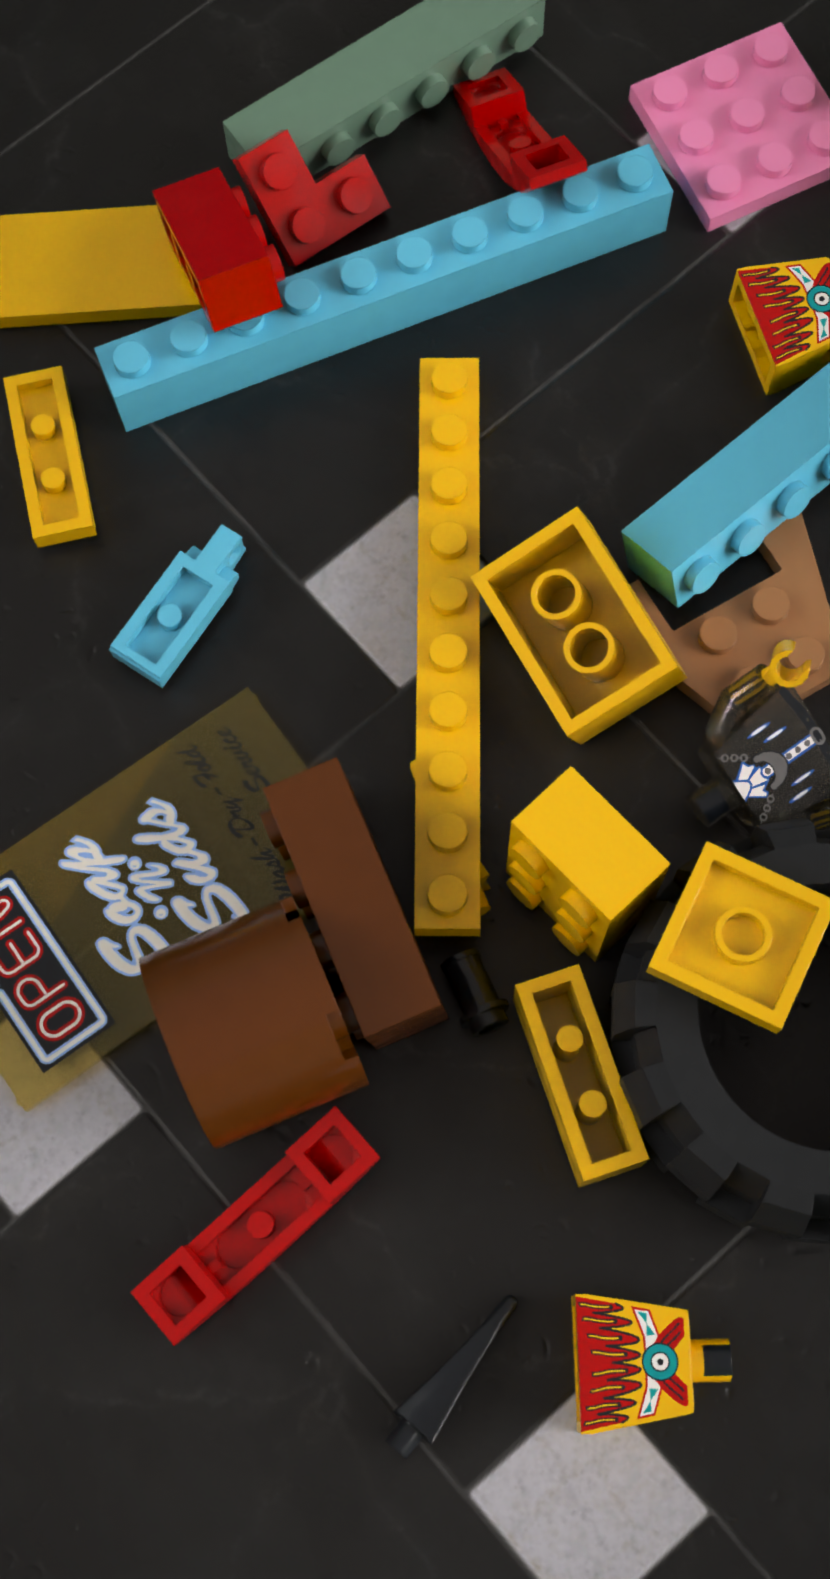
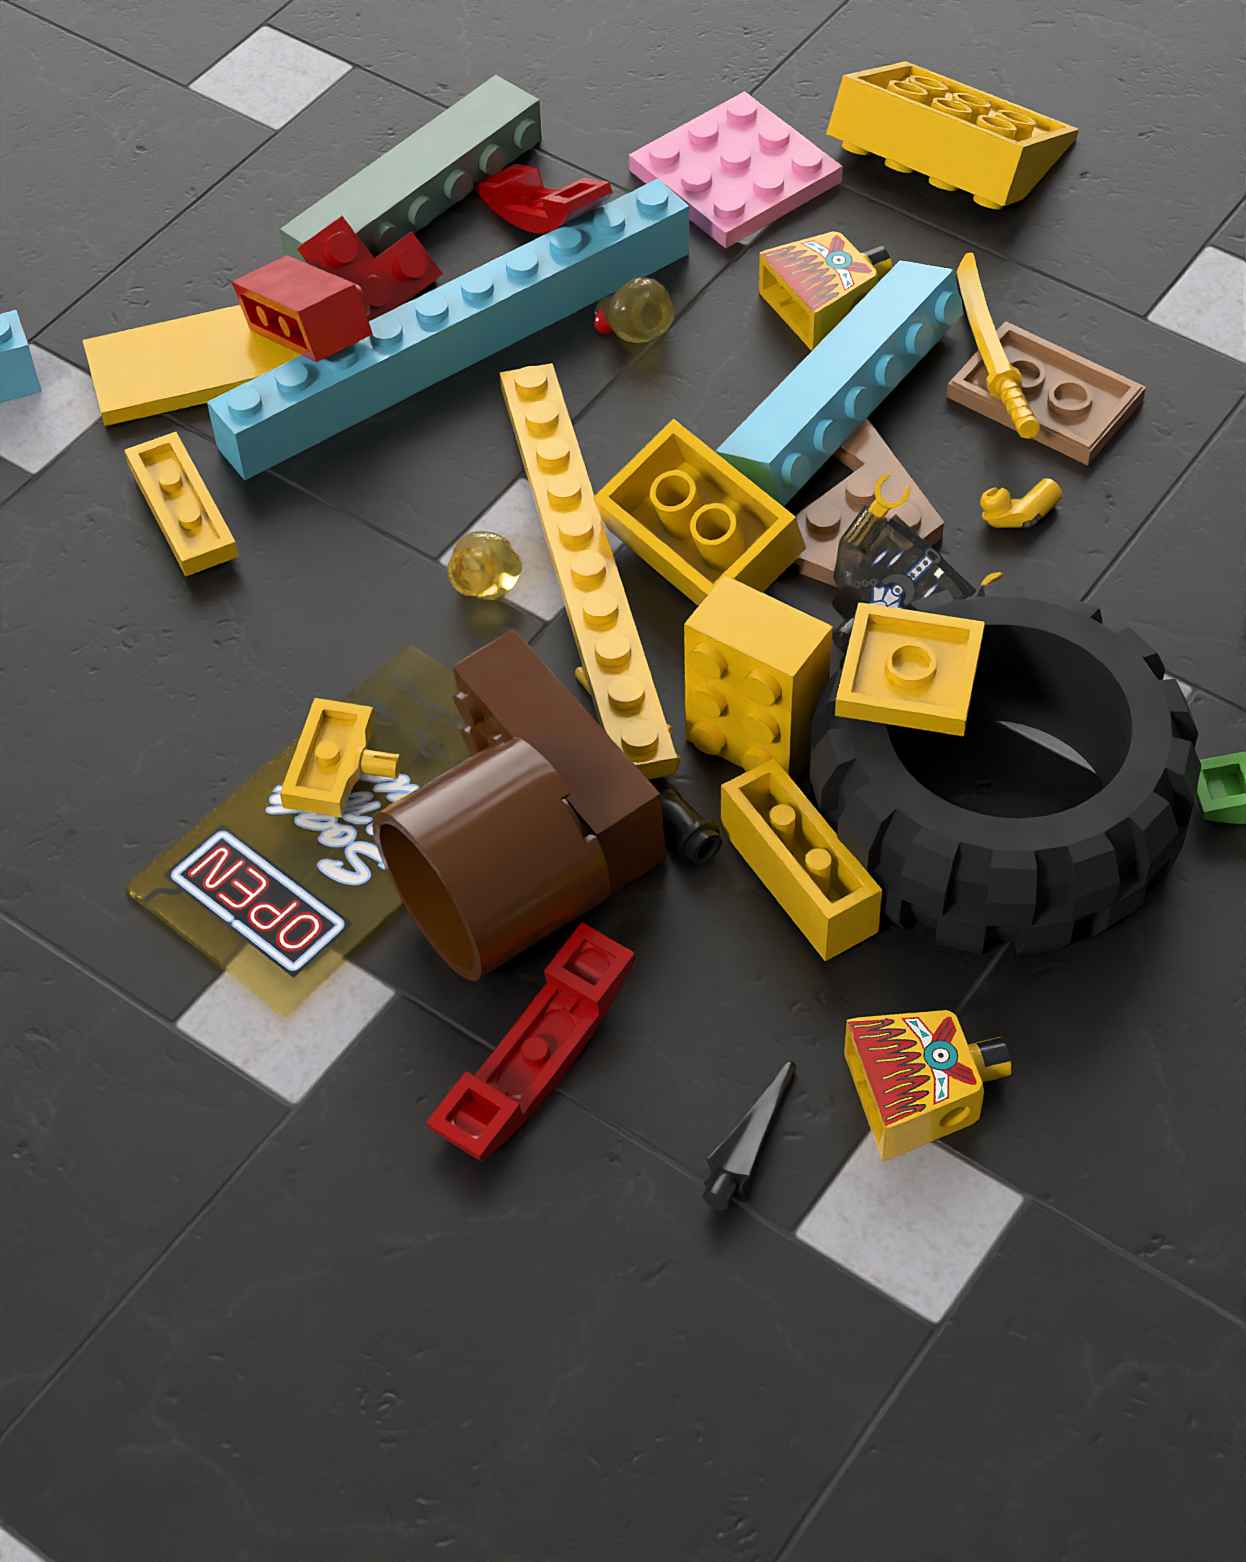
camera: 15 degrees left, 20 degrees down
(134, 827) = (333, 758): none -> yellow plate
(180, 607) = (330, 592): medium azure hinge -> none
(344, 612) = (484, 565): none -> clear yellow animal
(585, 310) = (636, 311): none -> clear yellow animal

